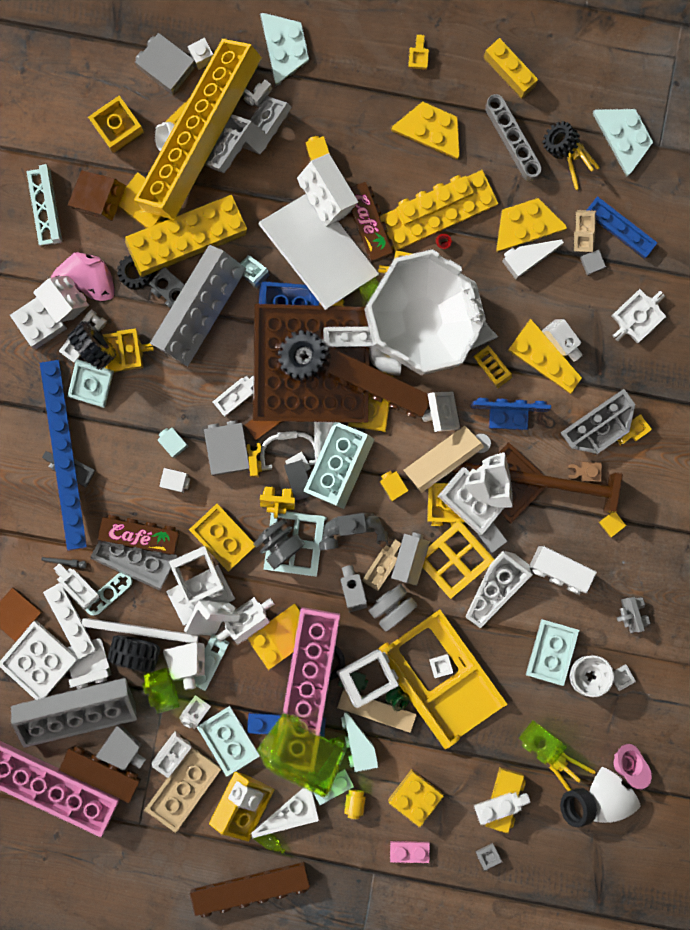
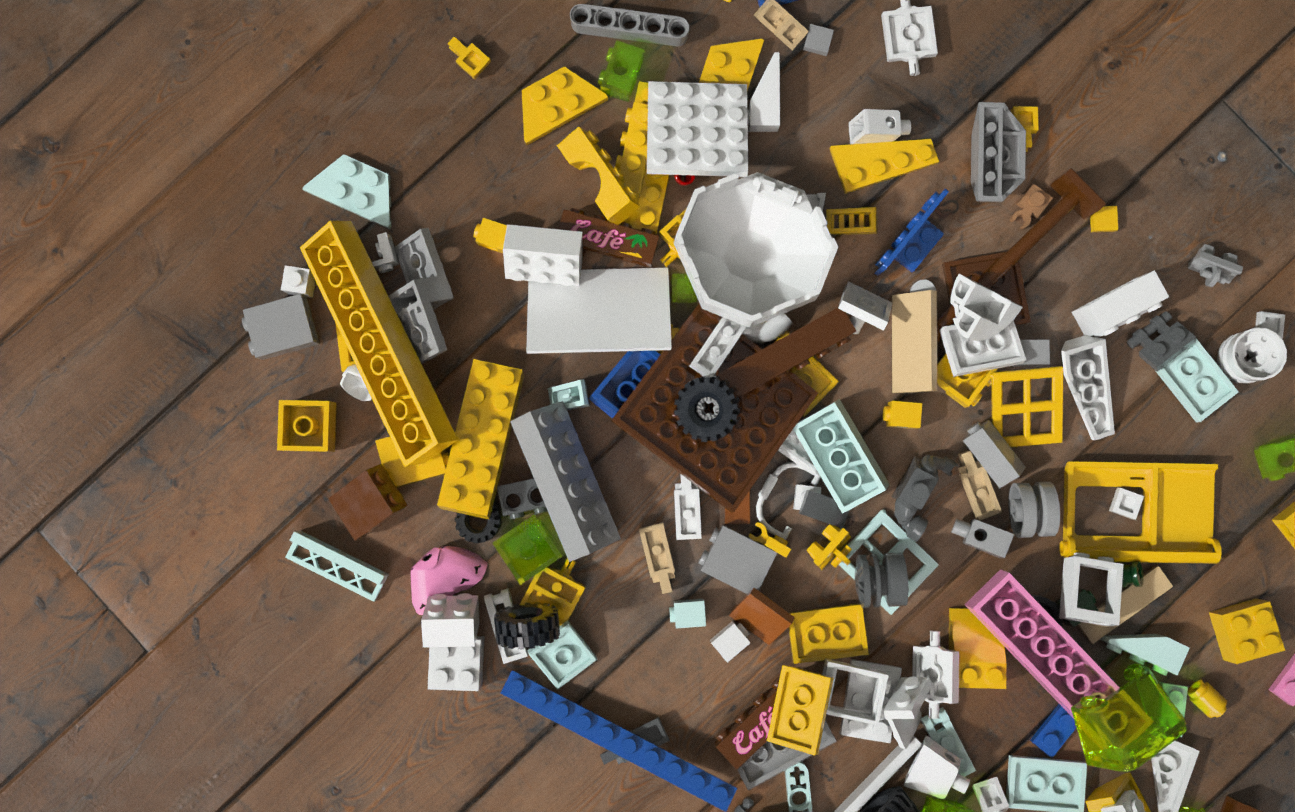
camera: 55 degrees left, 0 degrees up
(140, 313) = (528, 549): none -> clear neon green slope
(162, 549) = (800, 709): none -> yellow plate
(194, 398) = (658, 555): none -> tan hinge
(203, 487) = (761, 616): none -> dark orange tile
(395, 207) = (614, 197): none -> yellow arch
(472, 162) = (621, 56): none -> clear neon green brick
(476, 226) = (697, 129): none -> white plate
(558, 619) = (1166, 346): none -> dark grey plate

